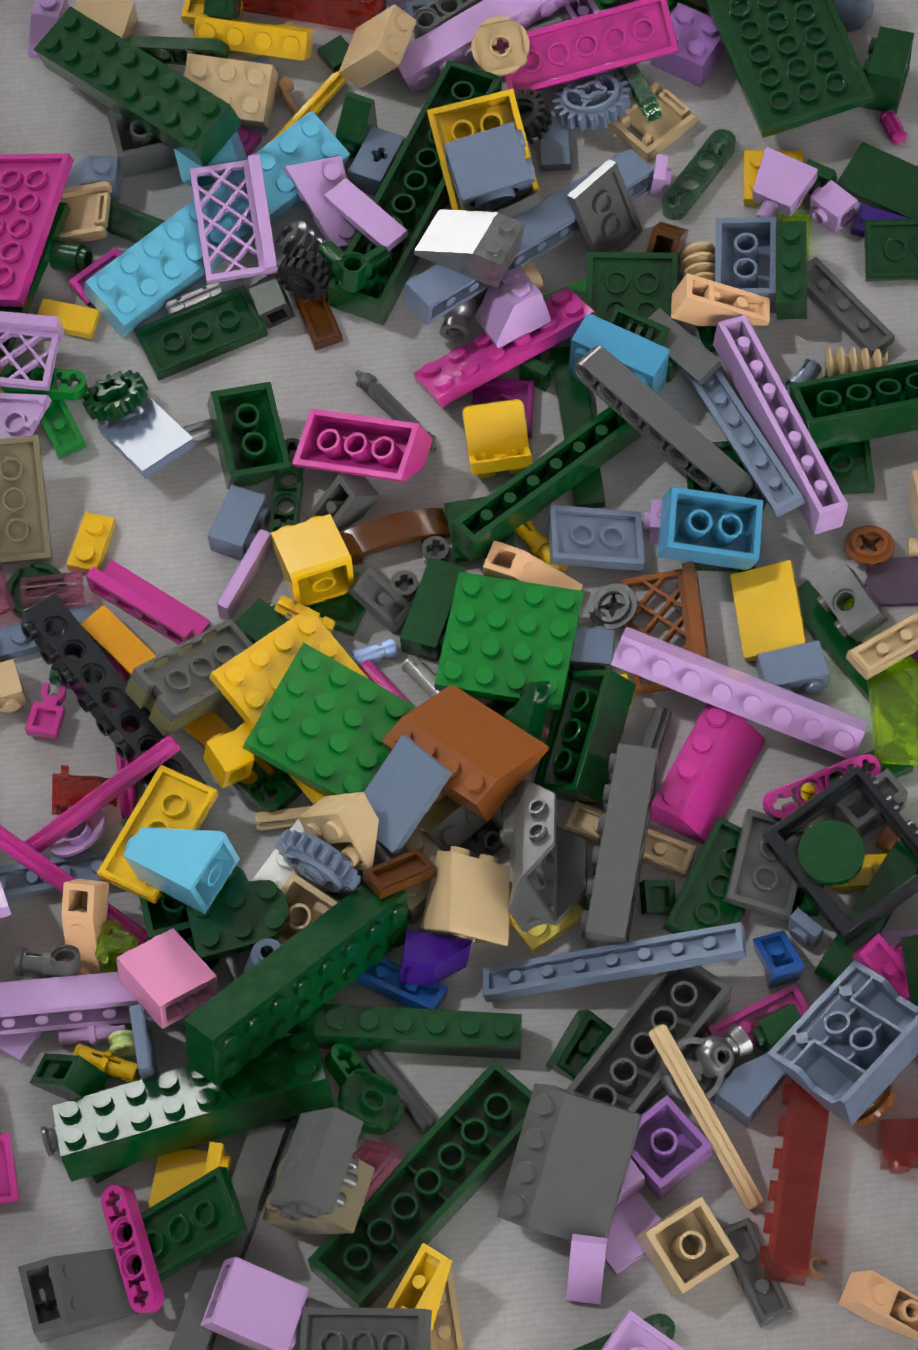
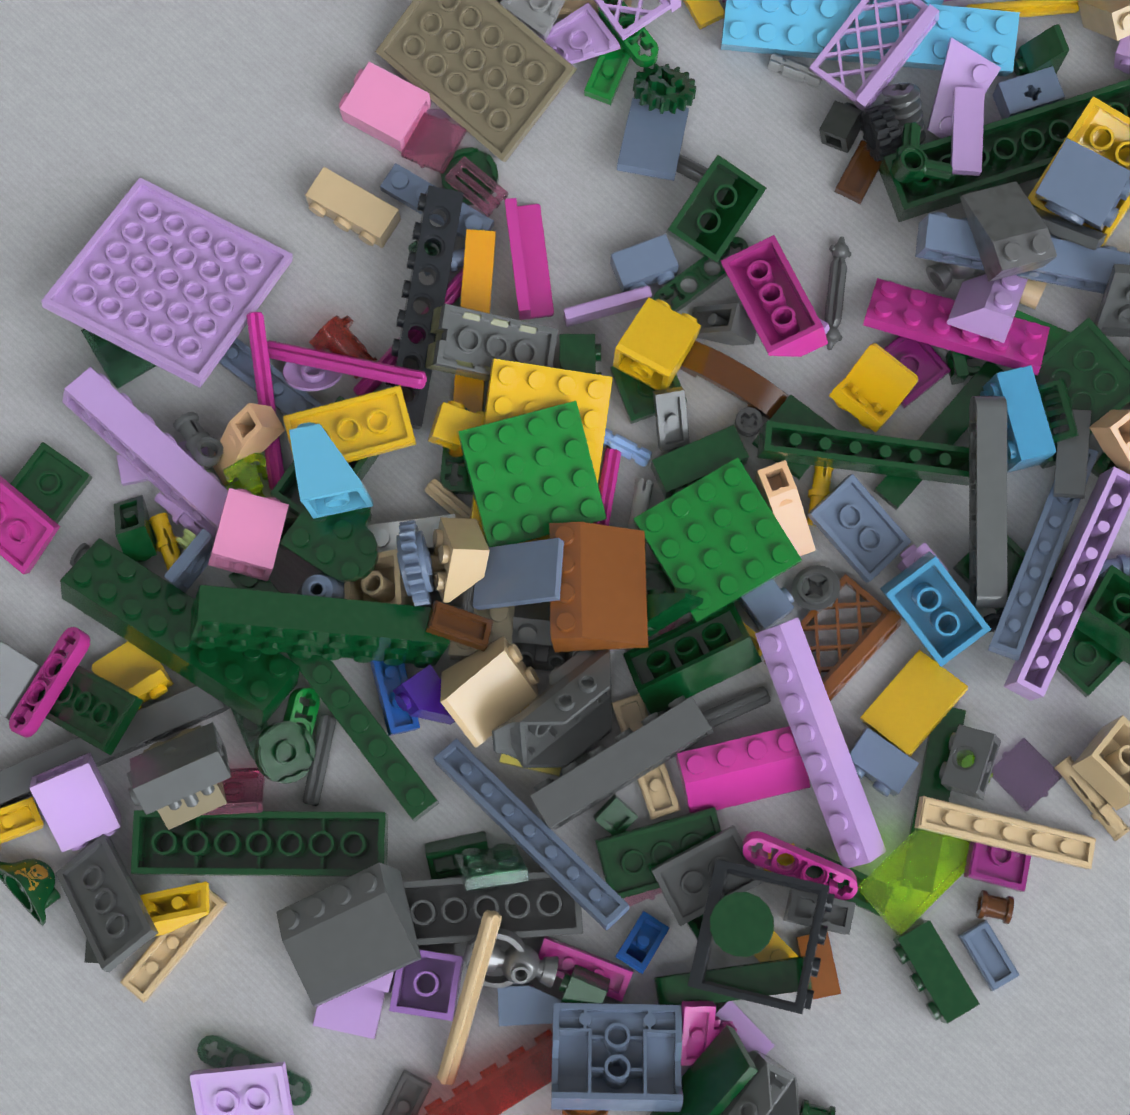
camera: 45 degrees right, 15 degrees up
(47, 717) = (380, 270): dark pink plate -> none
(91, 542) = (539, 178): yellow plate -> none
(200, 332) = (773, 99): dark green tile -> none
(285, 606) = (603, 359): yellow axle -> none
(405, 576) = (700, 415): dark grey bush -> none
(586, 1269) = (293, 1005): lavender tile -> none
(614, 1014) = (490, 866): none -> clear green plate
(687, 1246) = (366, 1063): tan brick -> none
(804, 929) = (680, 943): sand blue plate -> none
(869, 536) = (1046, 726): dark orange gear -> none

